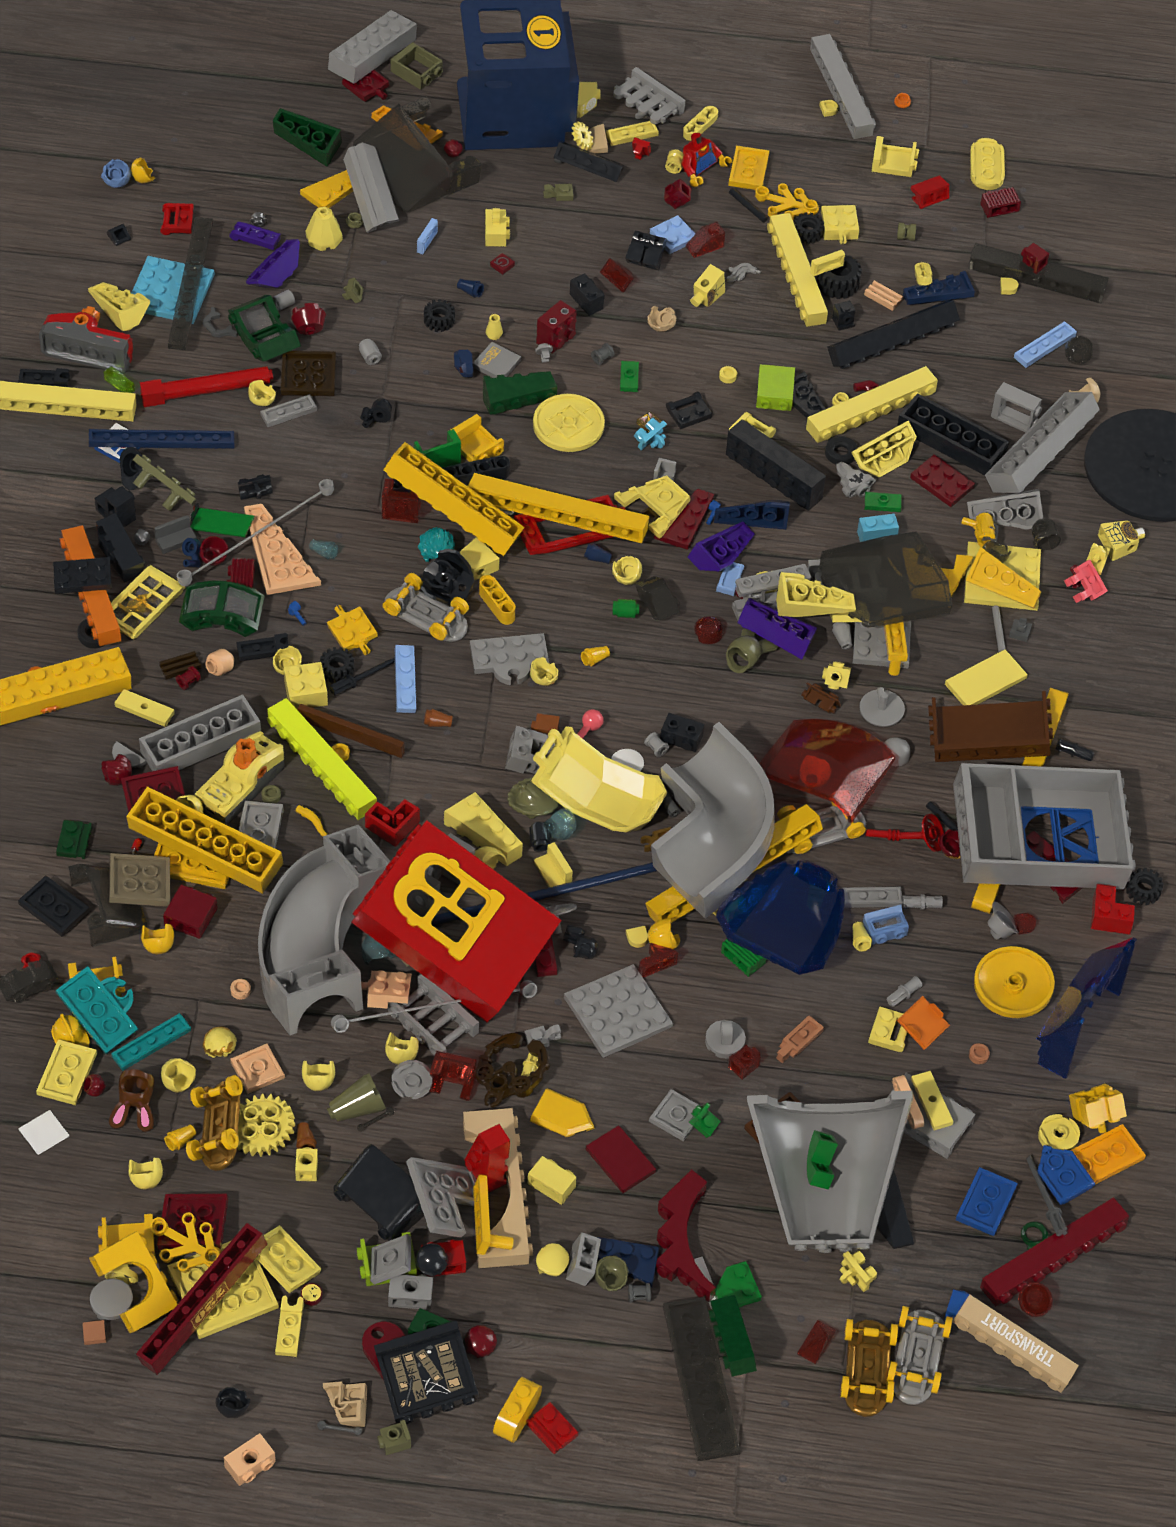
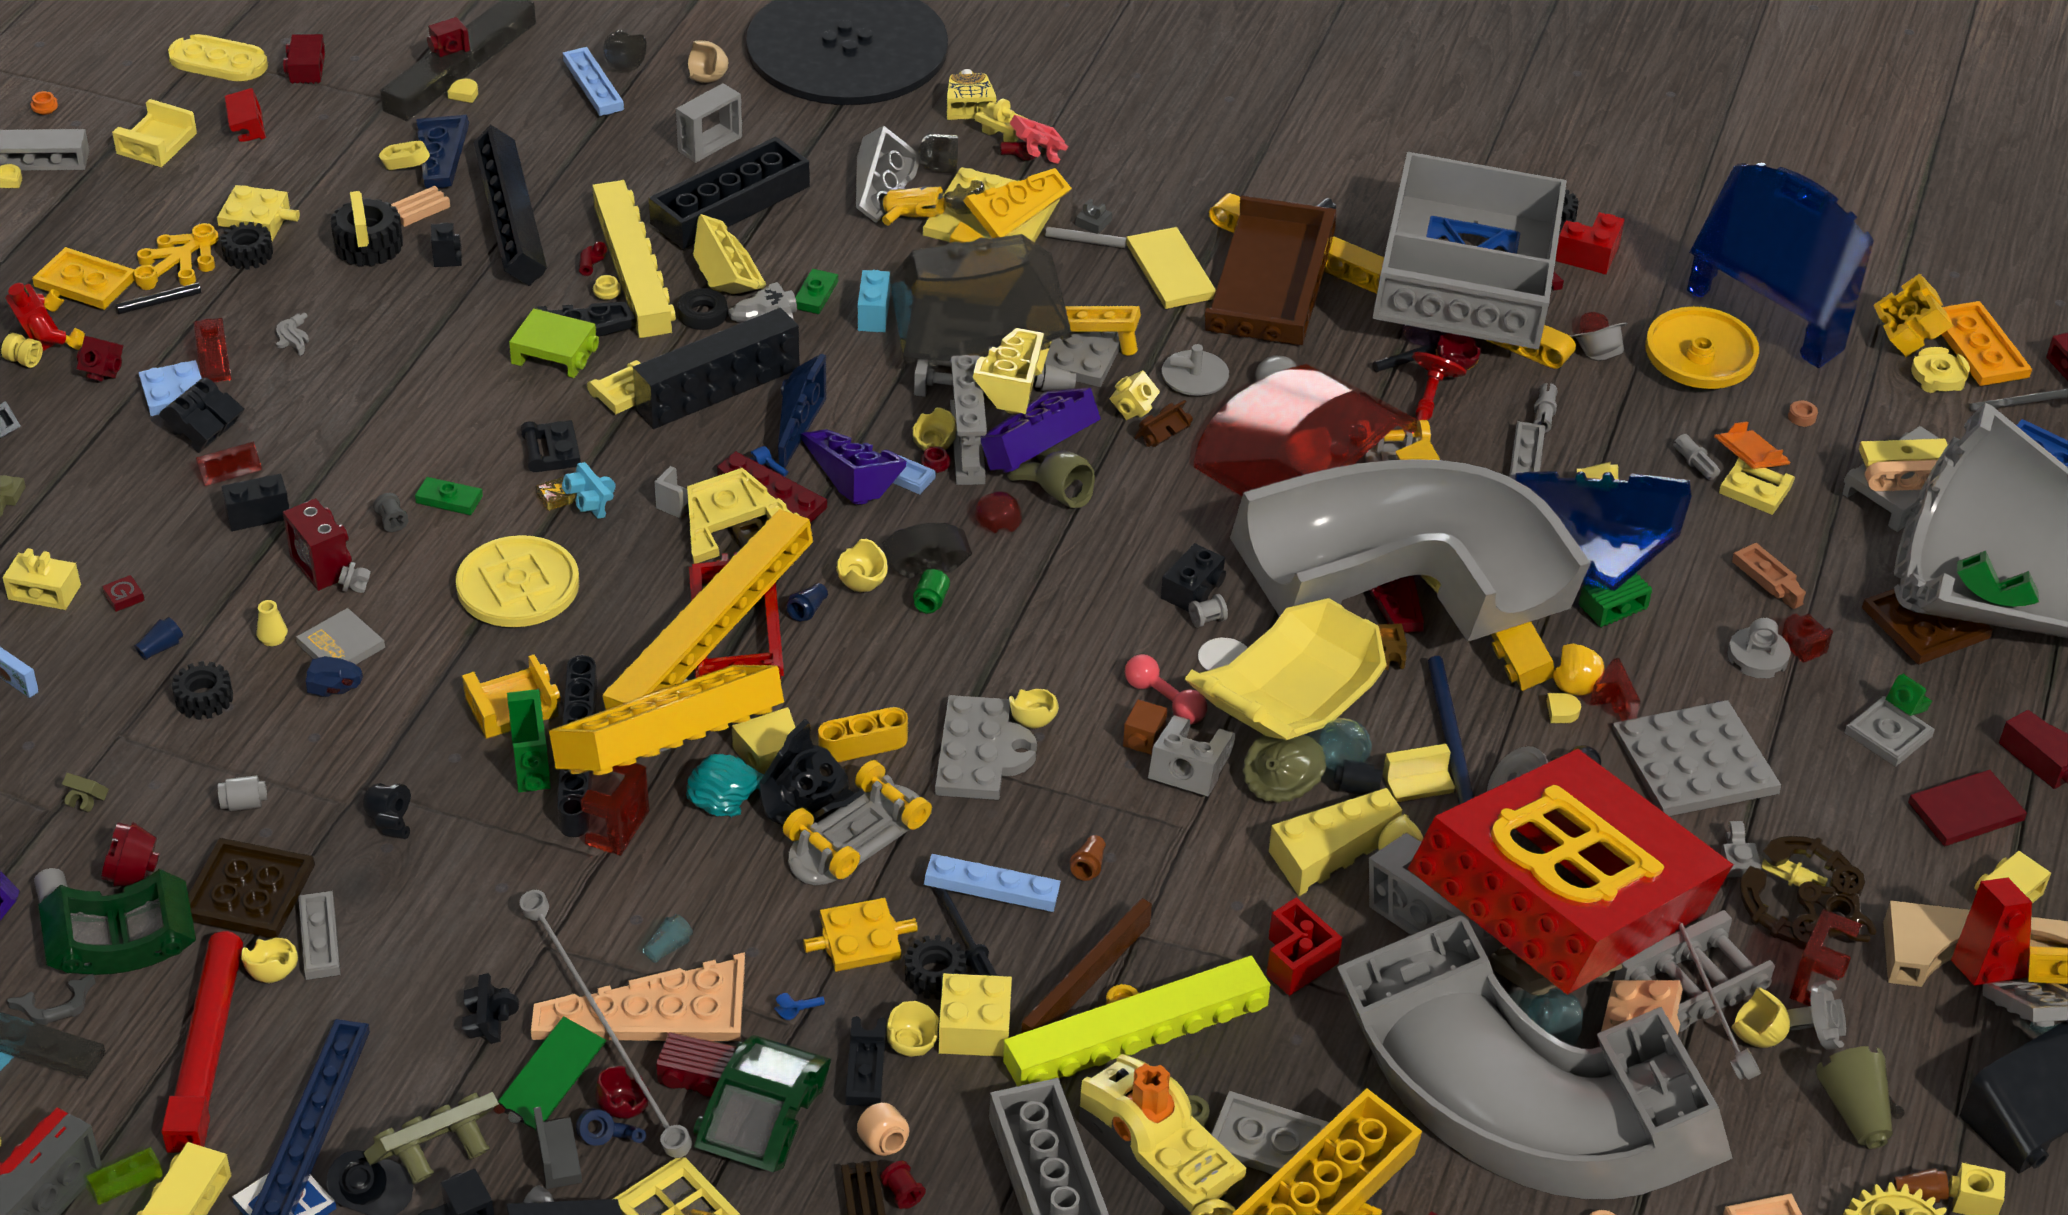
camera: 75 degrees left, 10 degrees down
(310, 815) = (1255, 1061): yellow animal -> none
(318, 1076) = (1805, 1138): light yellow hair -> none
(518, 391) = (429, 623): dark green wedge -> none
(561, 1114) = (1885, 858): yellow tile -> none
(591, 656) = (1013, 646): yellow cone -> none
(661, 320) = (356, 430): tan hair -> none
(708, 287) = (319, 362): light yellow torso -> none
(728, 374) = (496, 391): light yellow tile -> none
(797, 270) = (326, 271): light yellow brick -> none
(886, 924) = (1585, 444): medium blue window -> none
(910, 231) = (311, 153): olive wheel -> none
(942, 480) = (798, 228): dark red plate -> none
(1042, 442) = (787, 113): light grey brick -> none
(1063, 1174) = (2012, 372): blue tile -> none

